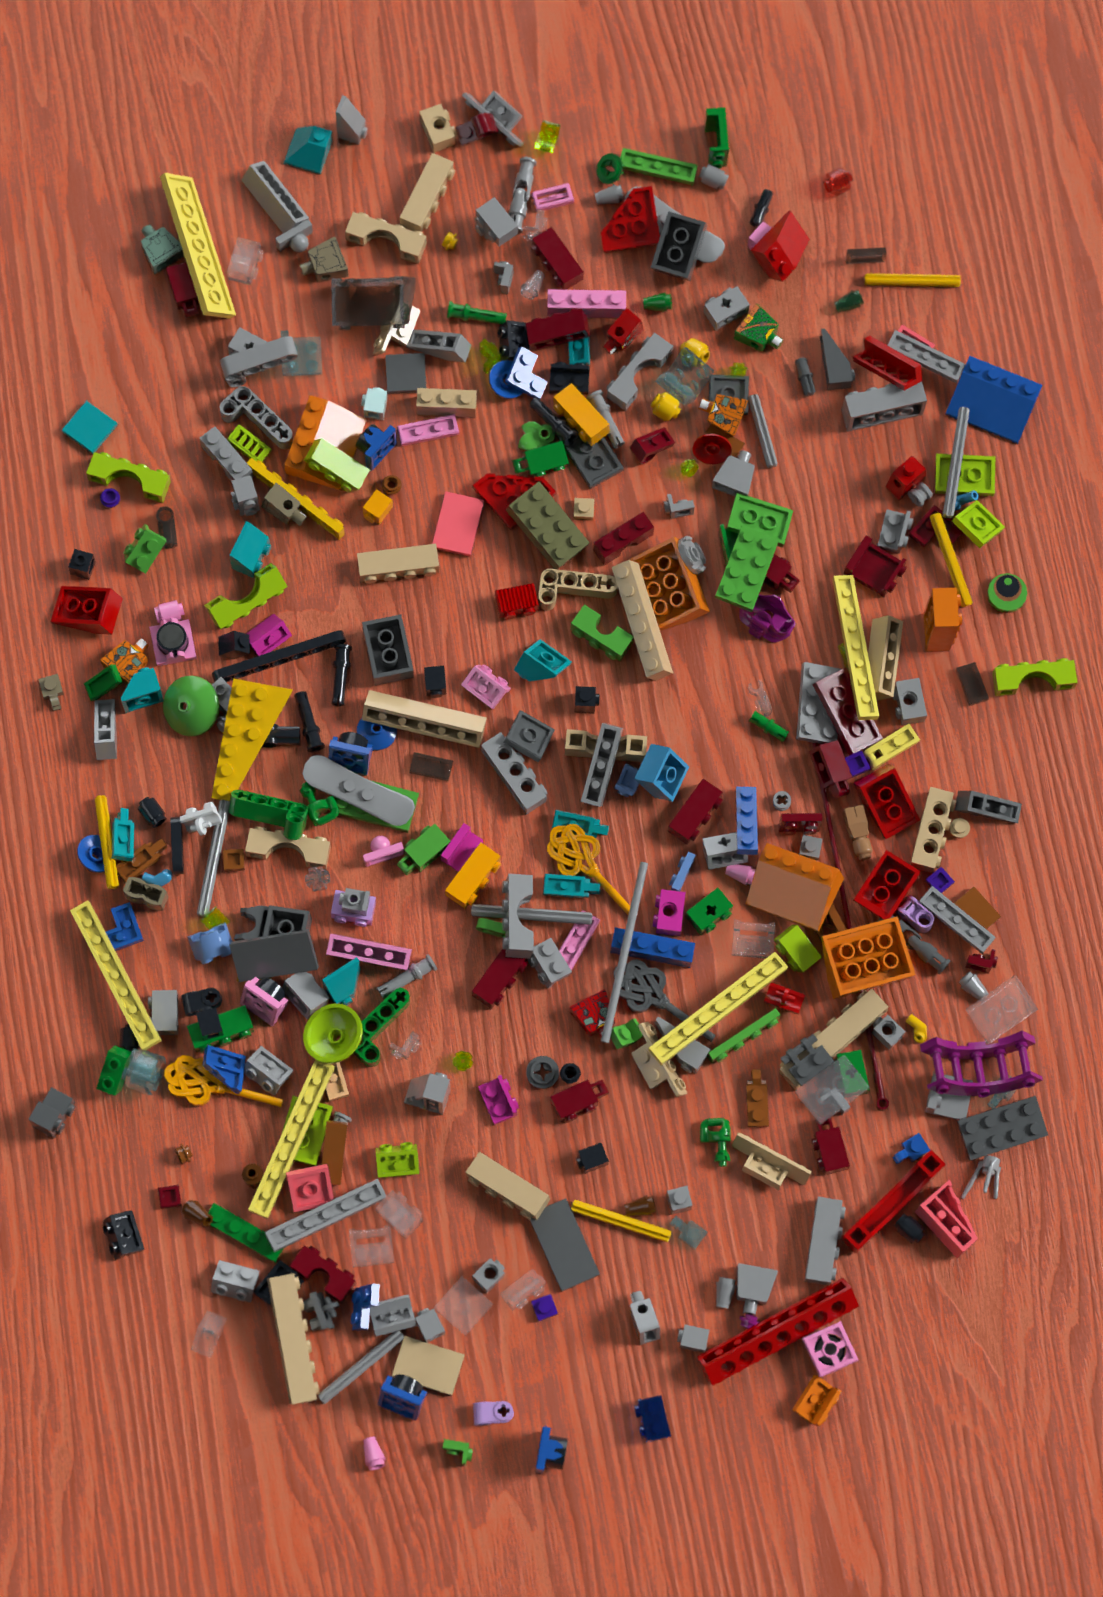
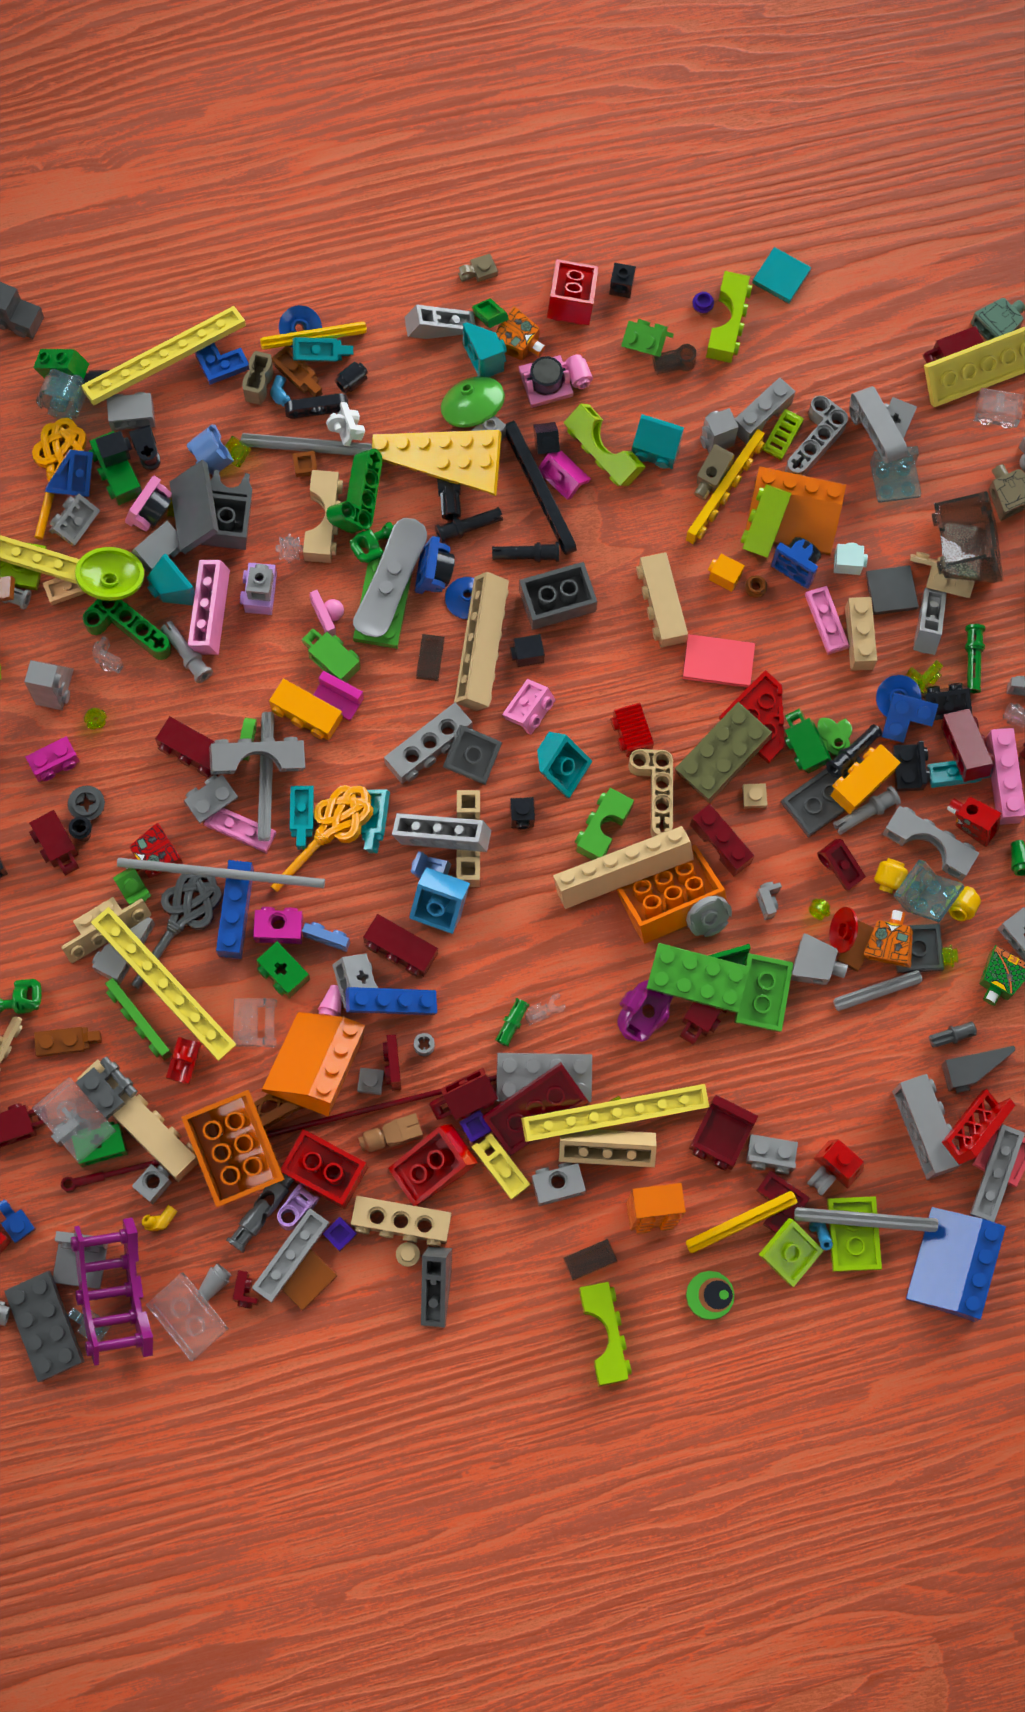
camera: 85 degrees right, 0 degrees up
(796, 948) = (243, 1069): lime brick -> none

